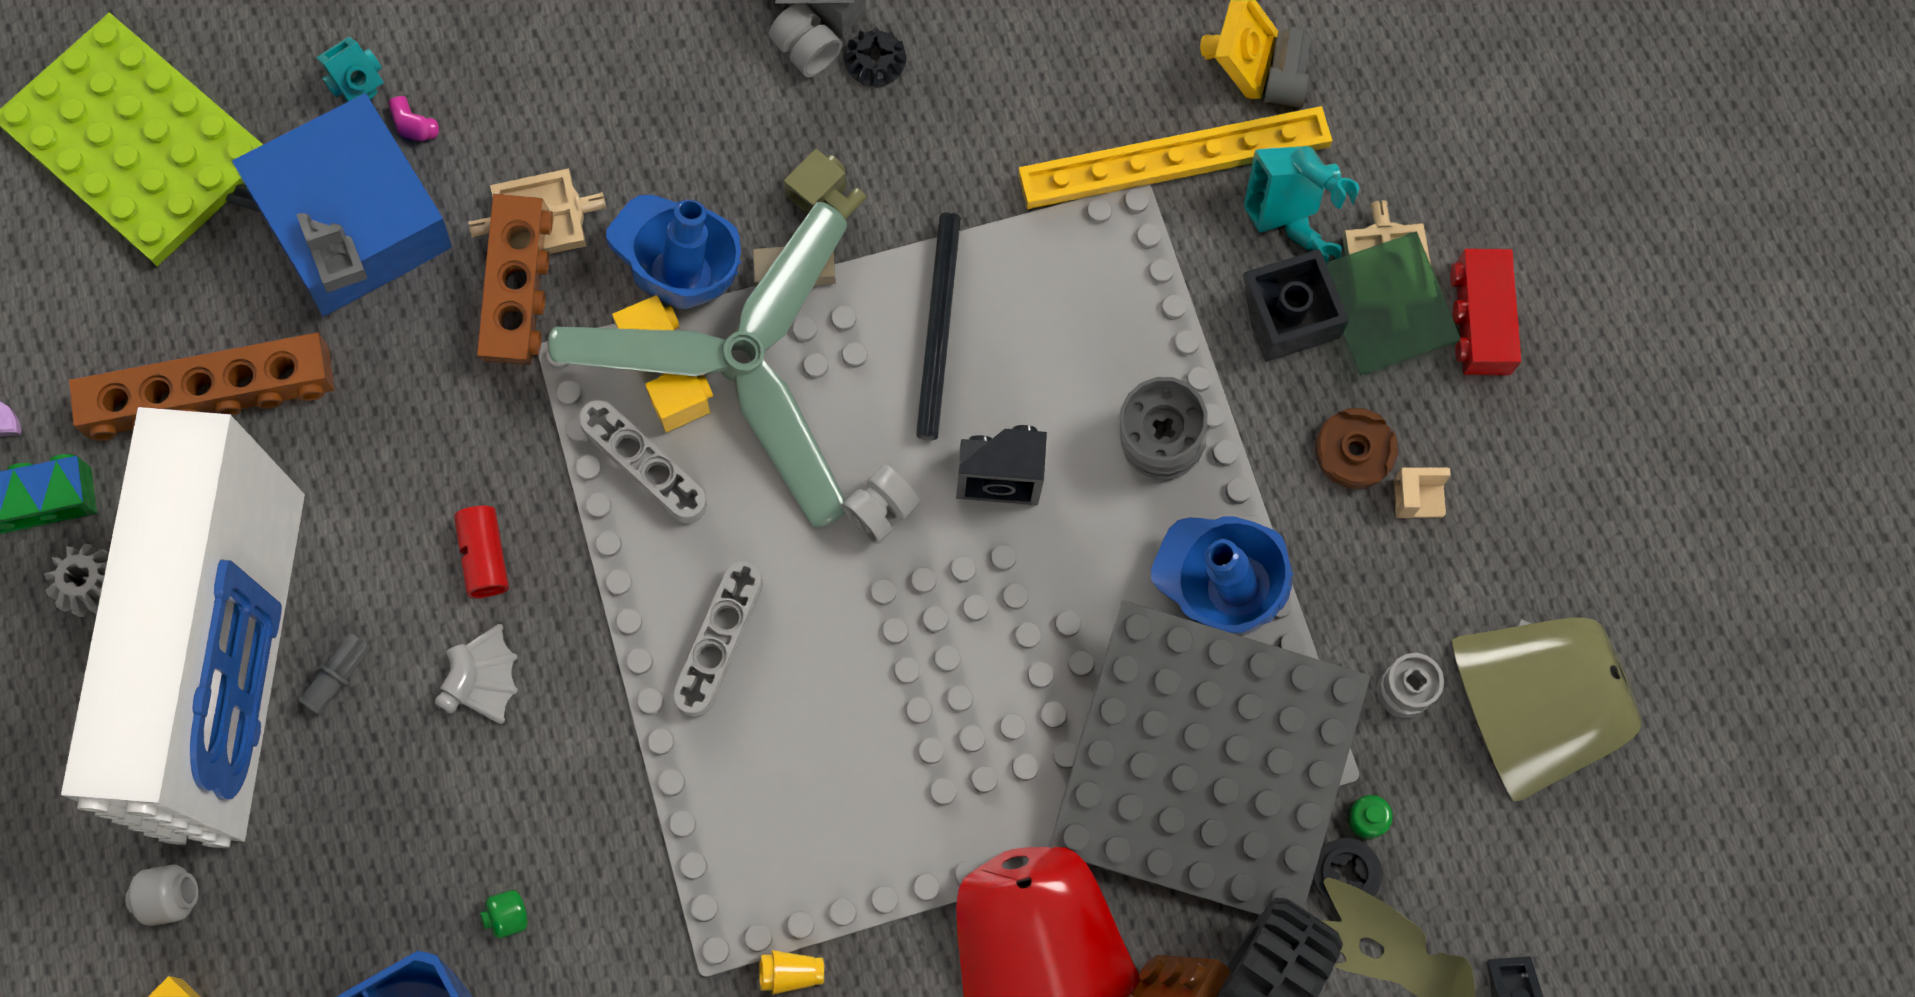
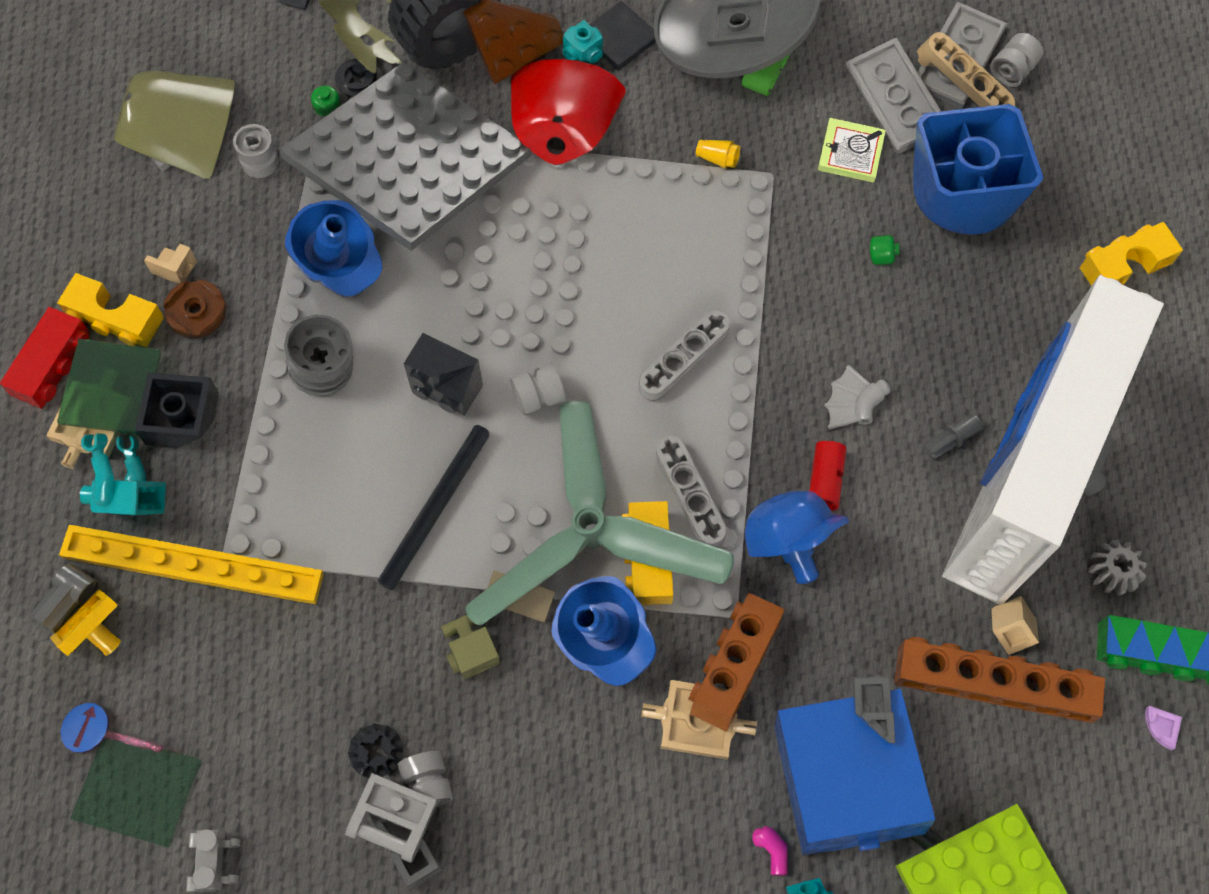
camera: 155 degrees left, 5 degrees down
(495, 444) = (792, 528): none -> blue piece
(1486, 395) = (132, 322): none -> yellow arch

